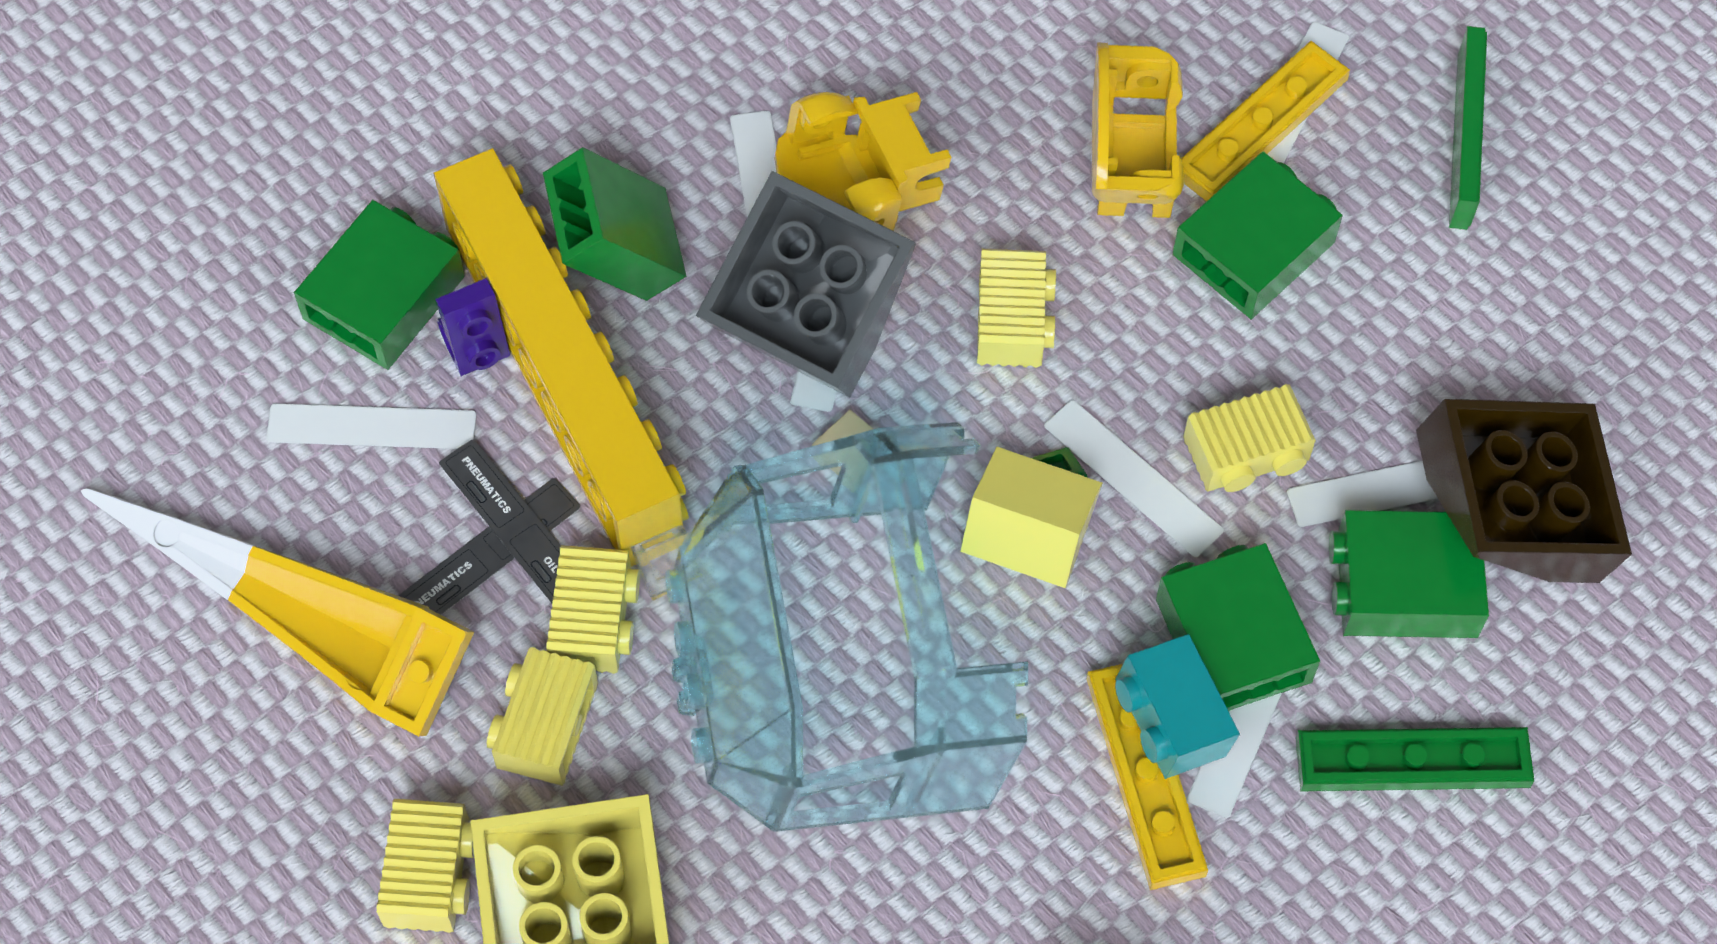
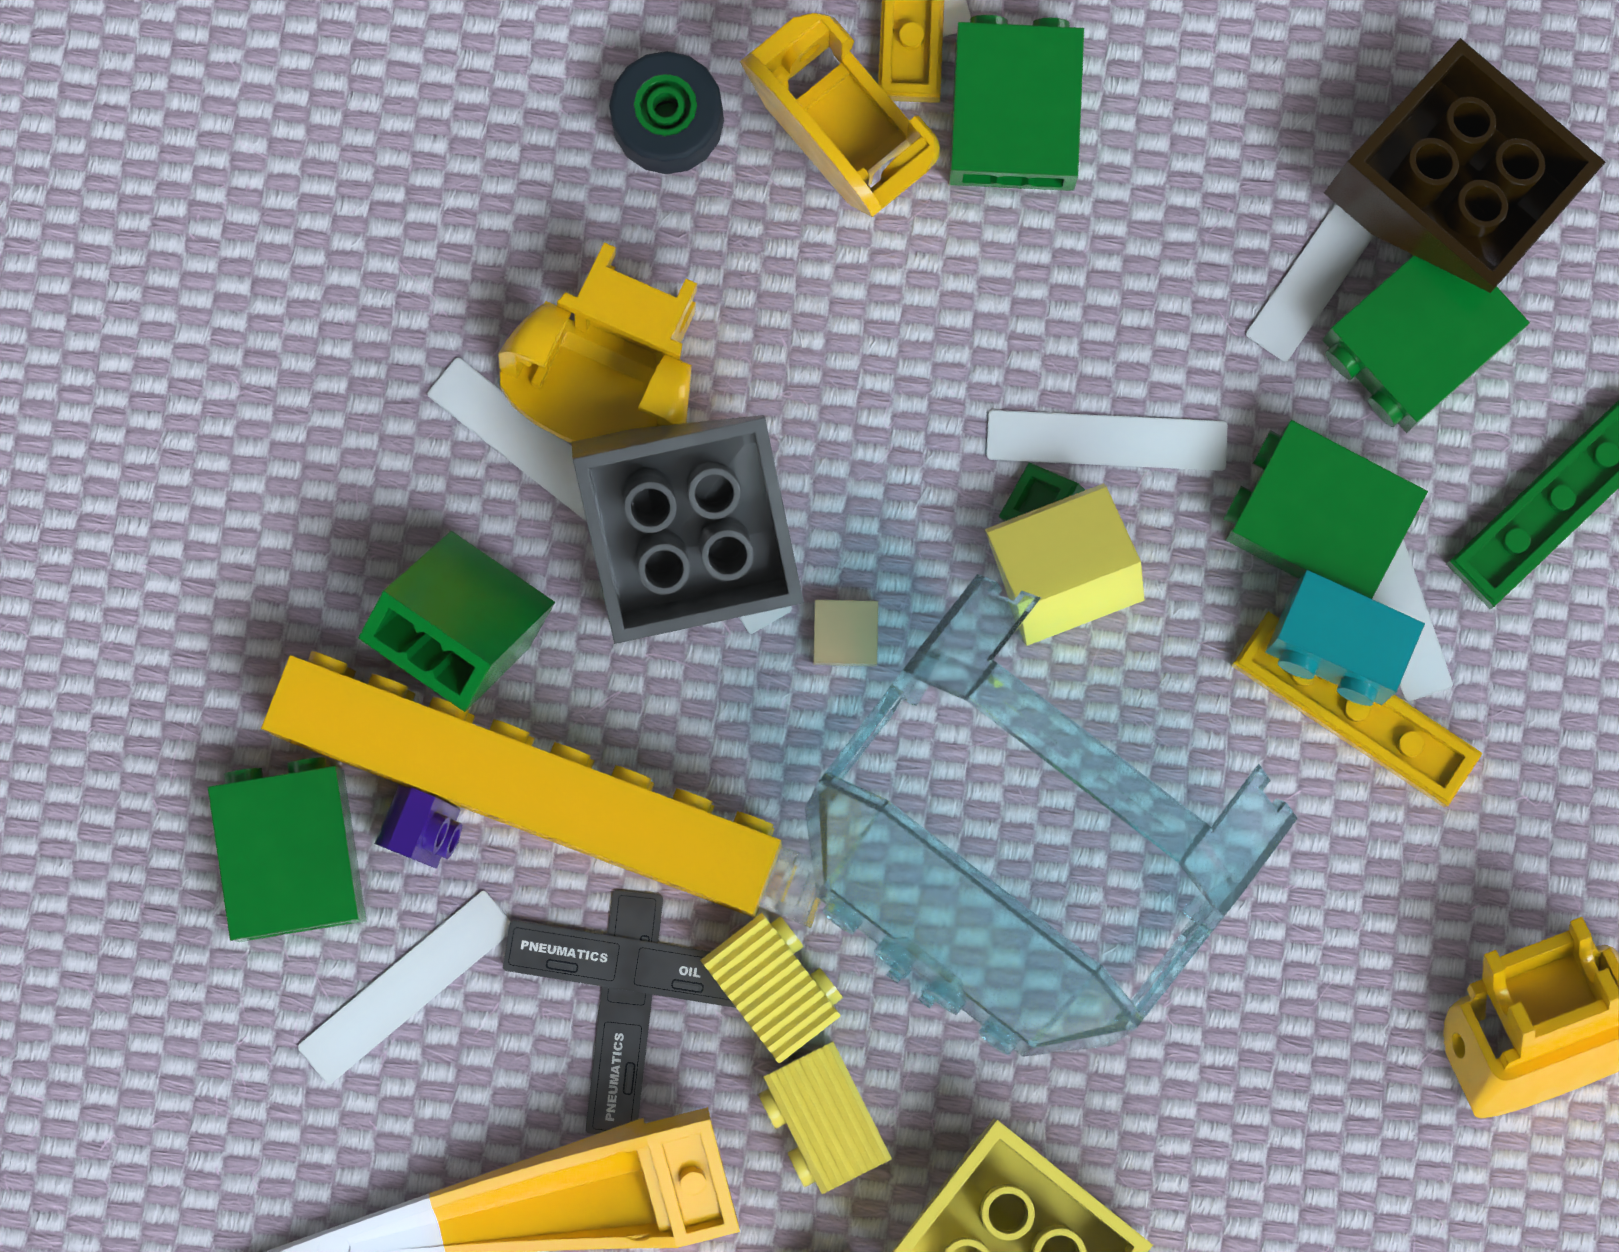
camera: 40 degrees left, 20 degrees up
(1013, 307) = (867, 371): light yellow brick -> none
(1030, 72) = (666, 136): none -> black wheel
(1249, 439) = (1183, 321): light yellow brick -> none

